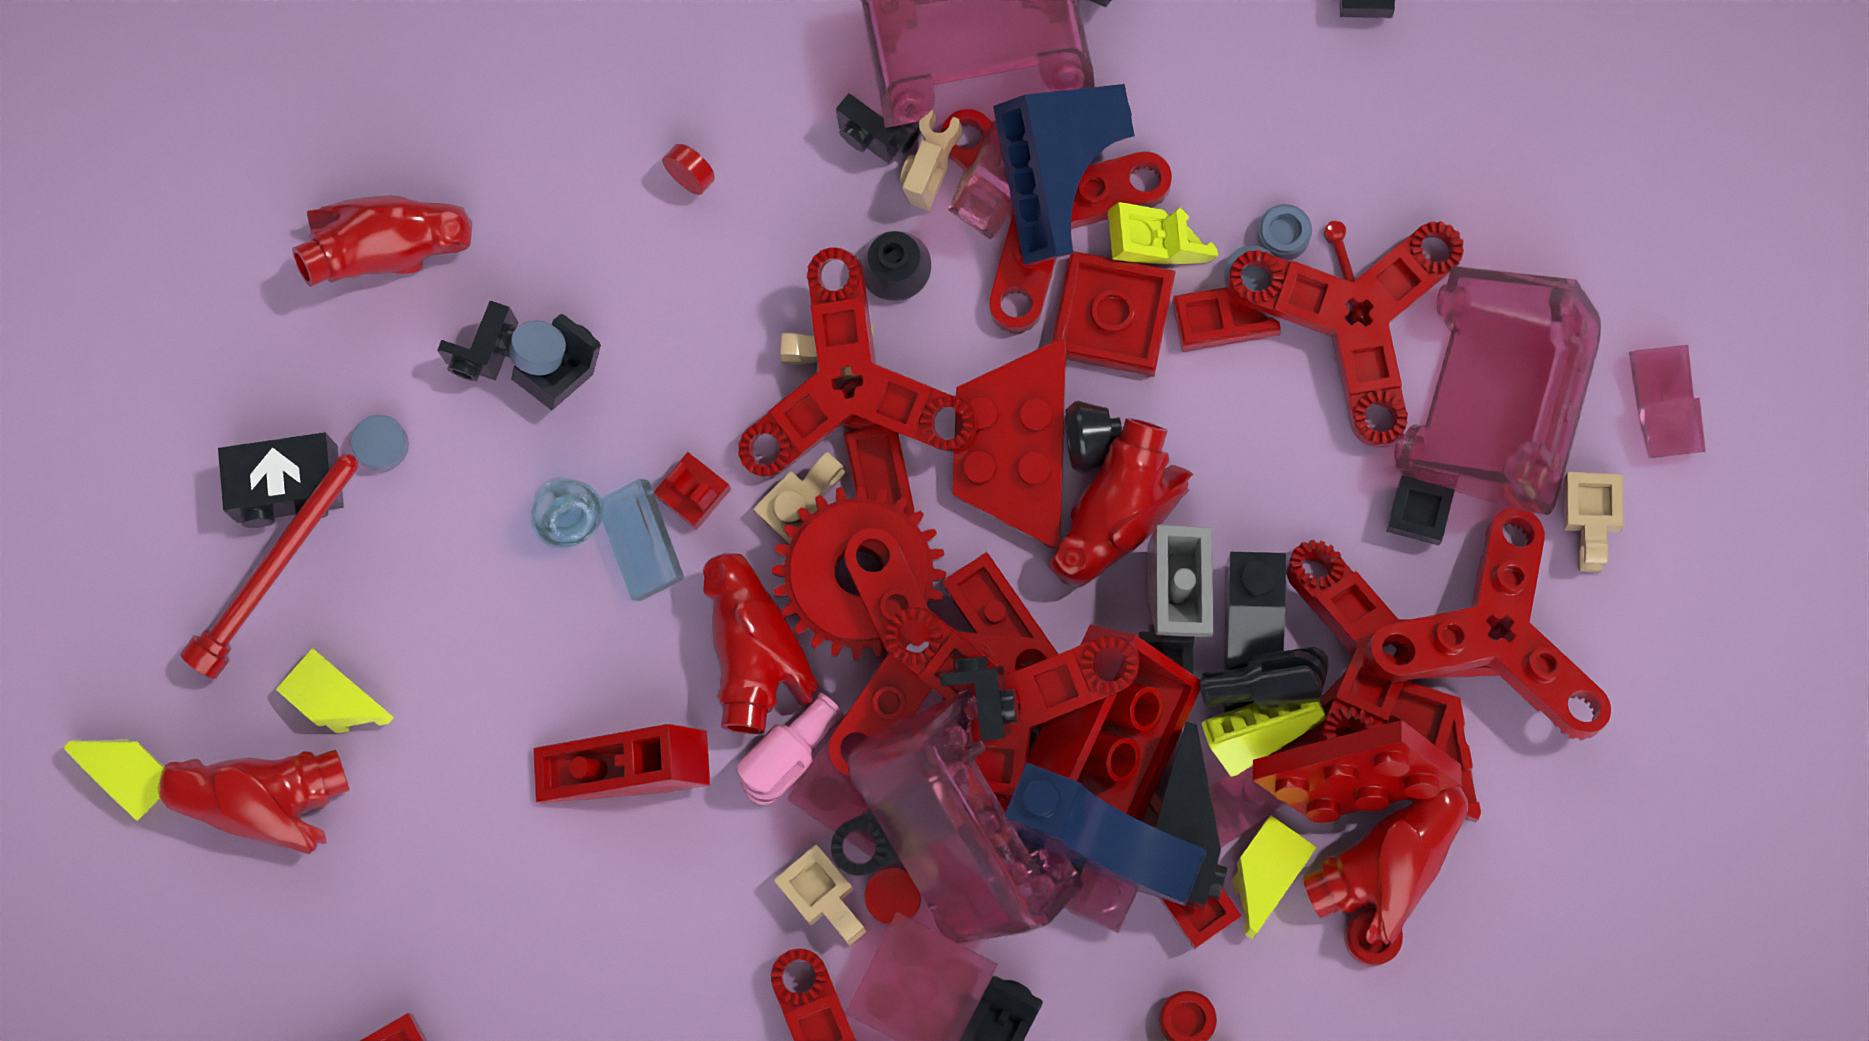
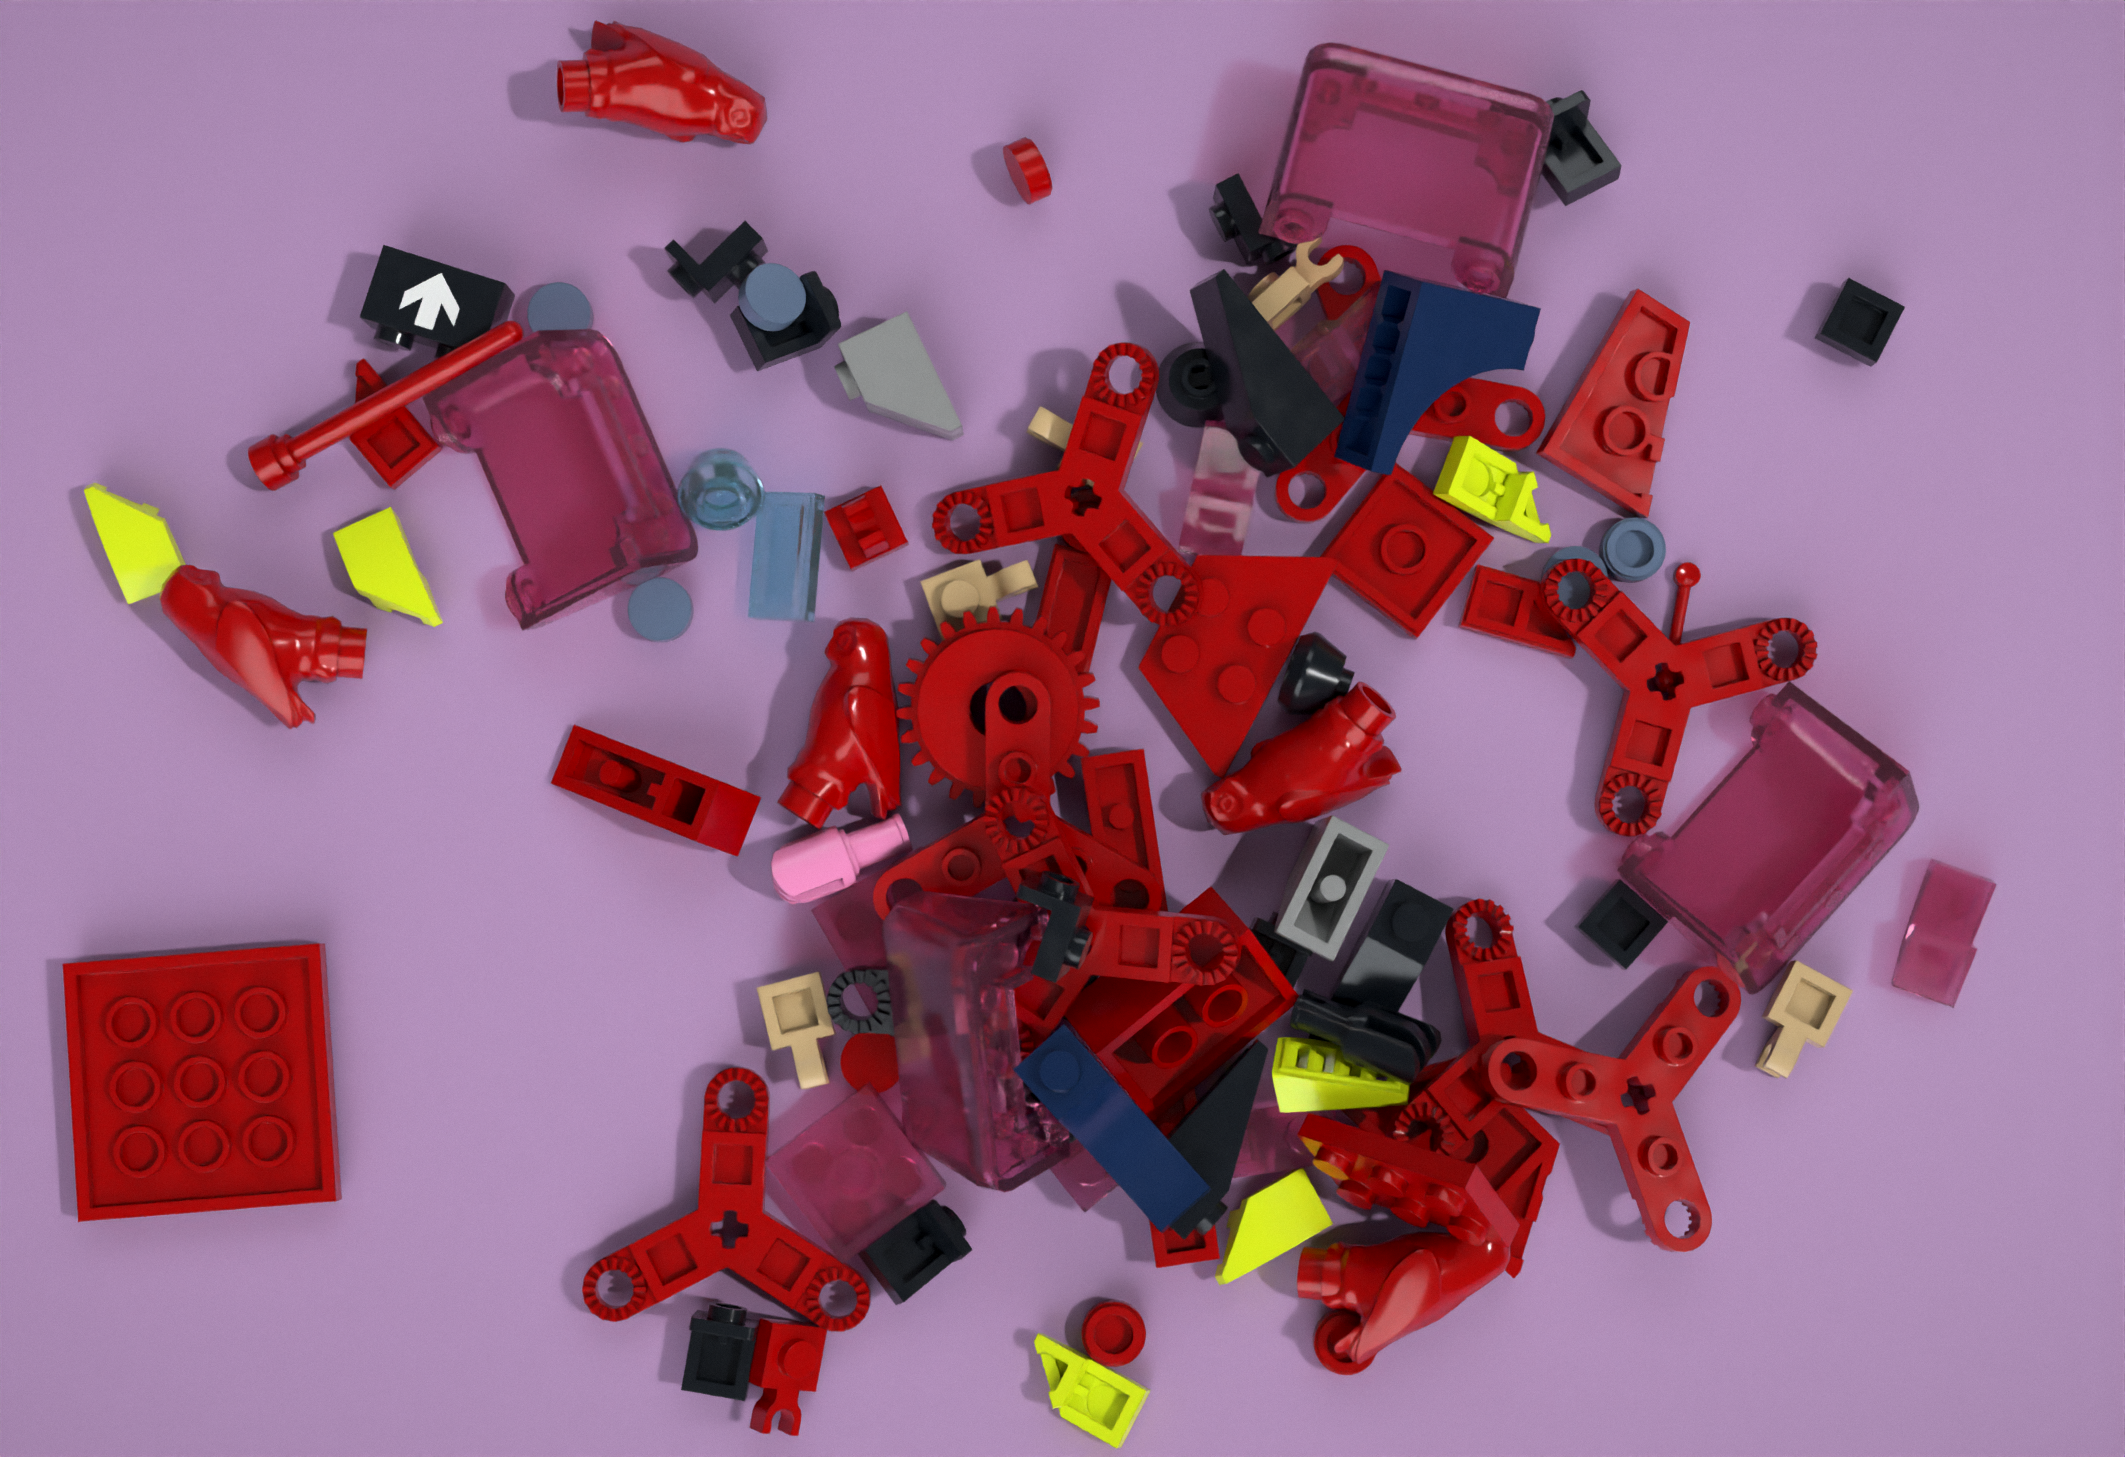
camera: 15 degrees right, 10 degrees up
(293, 598) = (396, 443): none -> red tile
(436, 554) = (567, 471): none -> clear pink windscreen
(560, 627) = (660, 610): none -> sand blue tile
(663, 365) = (897, 378): none -> light grey slope
(940, 233) = (1260, 384): none -> black slope
(951, 331) = (1218, 496): none -> clear pink slope
(1219, 132) = (1619, 405): none -> red wing

